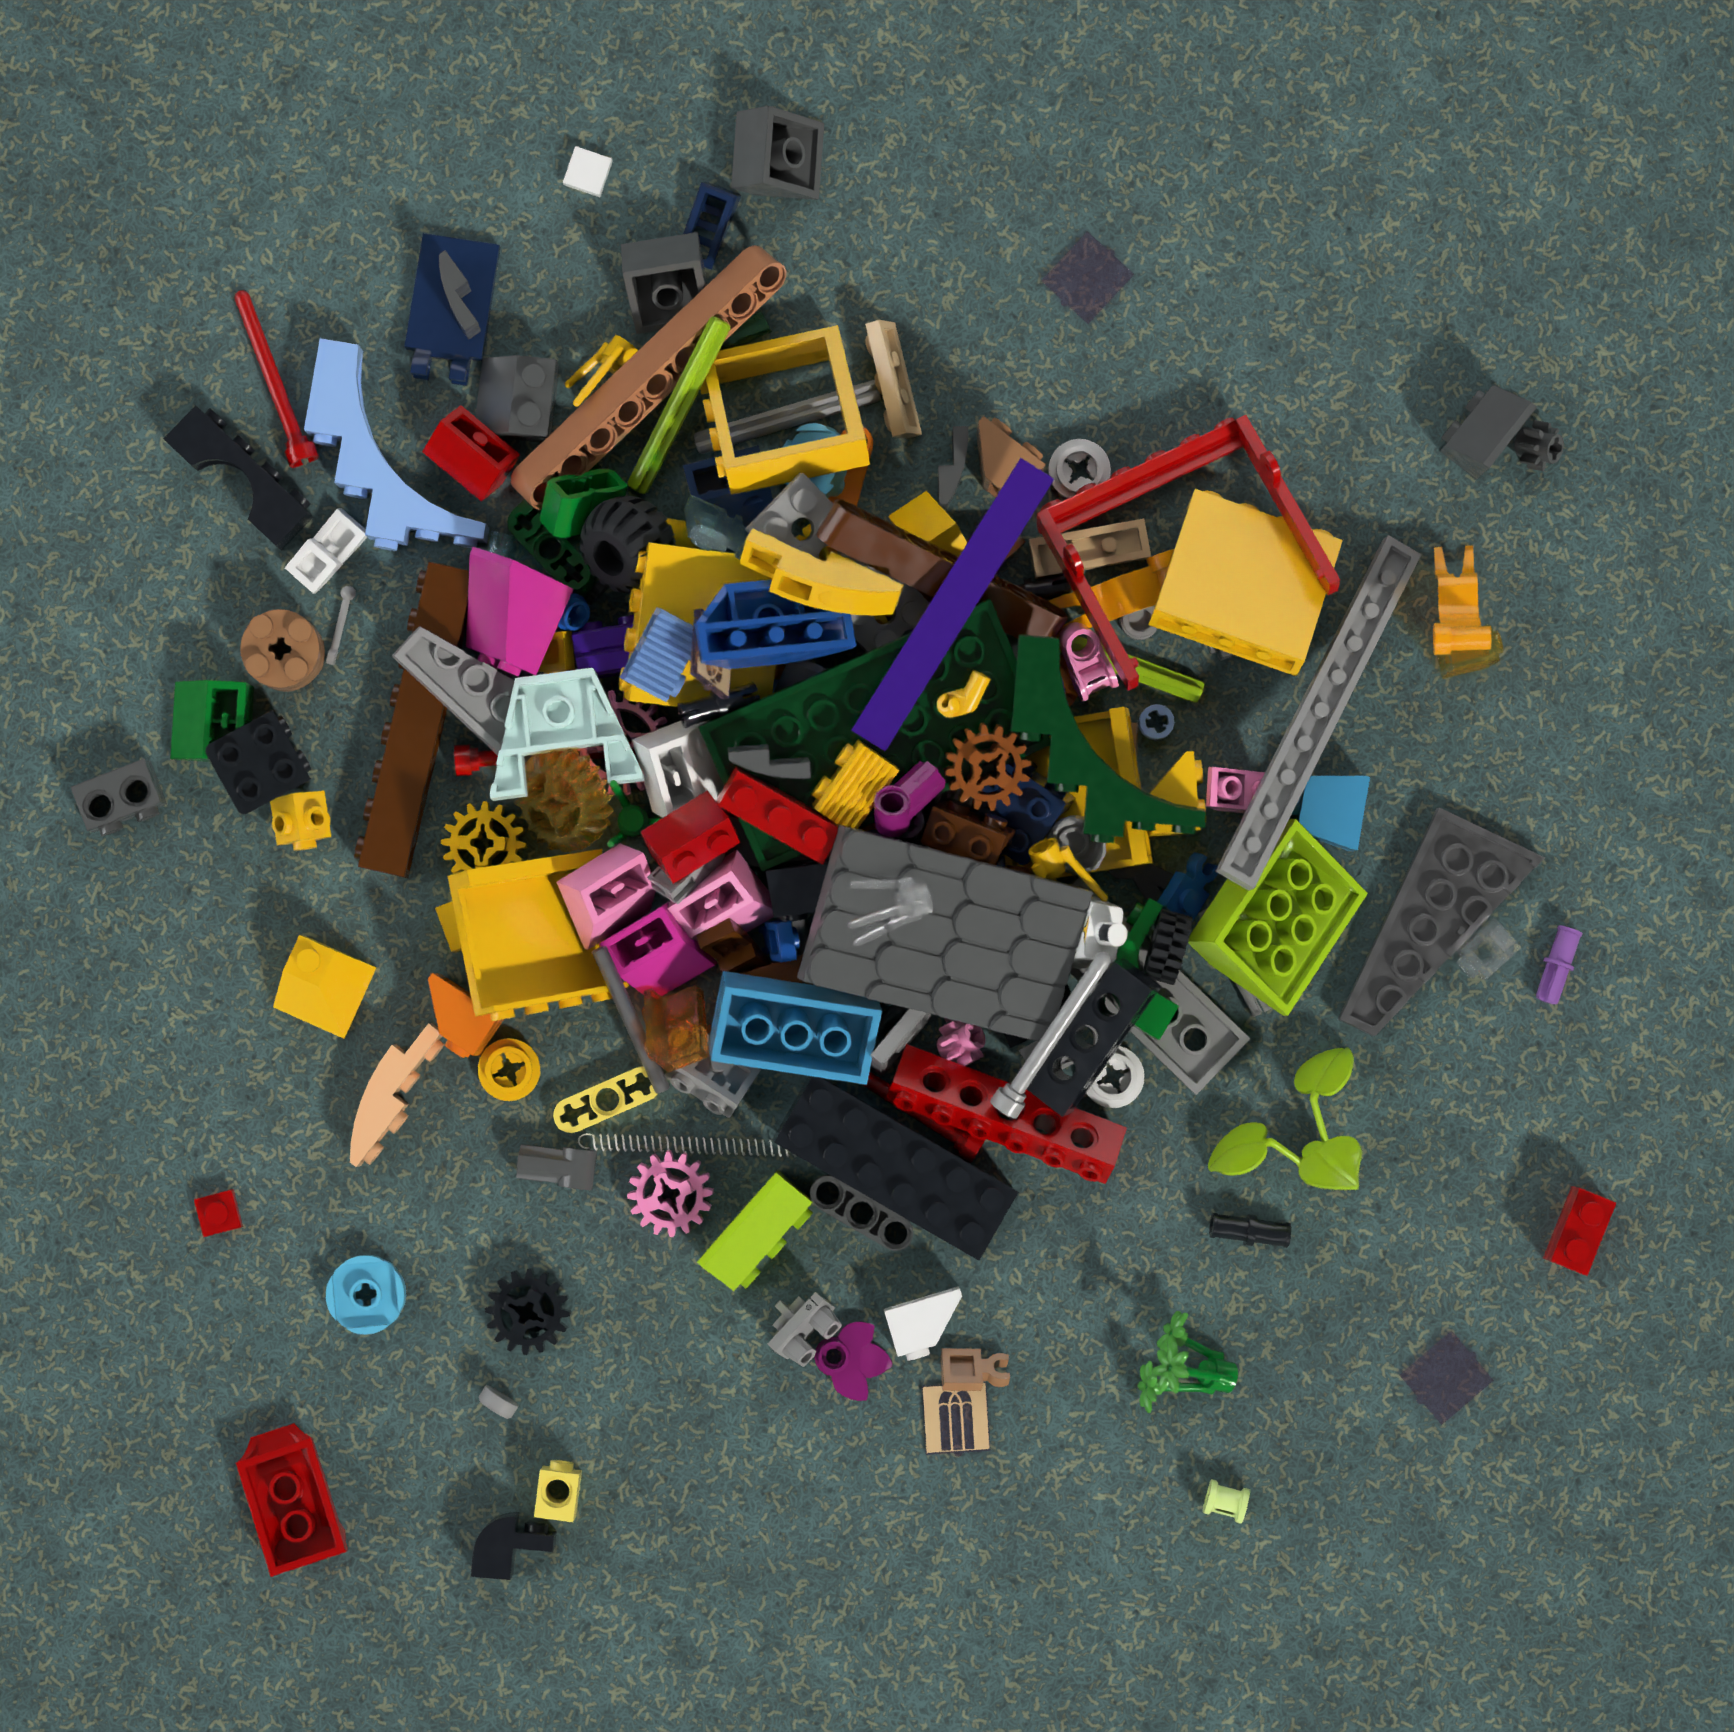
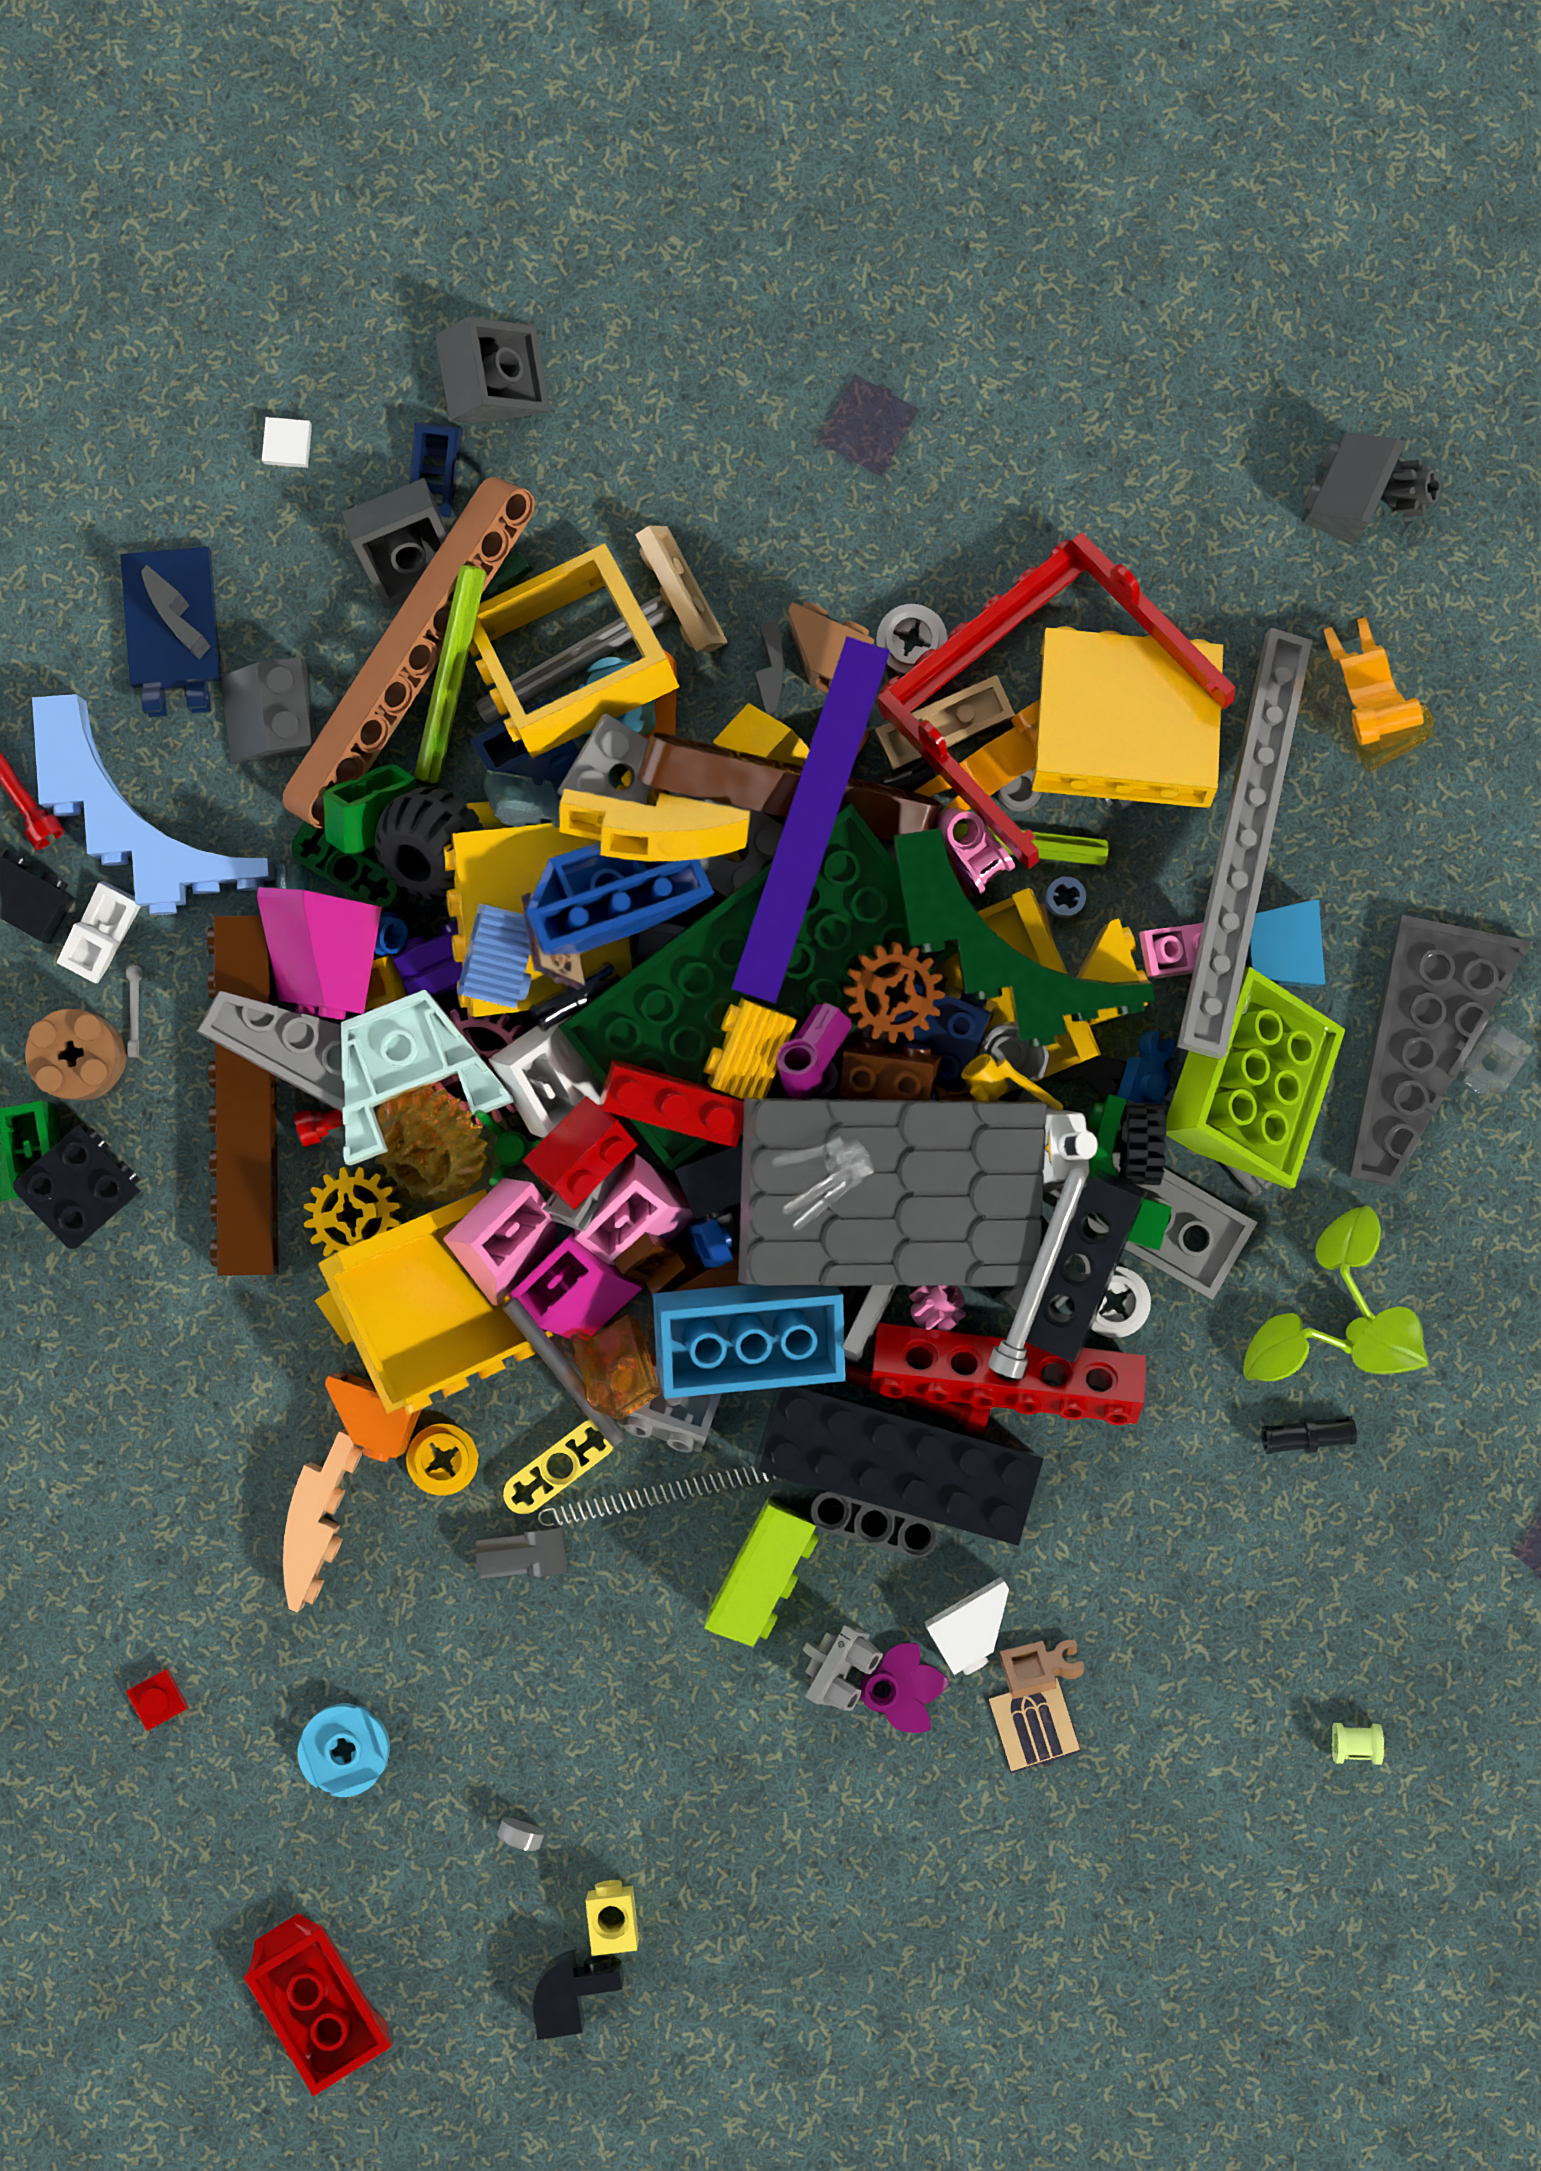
camera: 15 degrees left, 0 degrees up
(300, 819) = (141, 1238): yellow brick -> none
(322, 986) = (211, 1416): yellow slope -> none
(471, 453) = (232, 784): red brick -> none
(535, 1295) = (508, 1721): black gear -> none
(611, 357) = (362, 642): yellow plant -> none
(654, 1201) = (640, 1566): bright pink gear -> none
(757, 760) = (634, 1048): dark grey slope -> none
(963, 700) = (850, 923): yellow arm -> none
(1211, 1374) = (1306, 1606): plant -> none

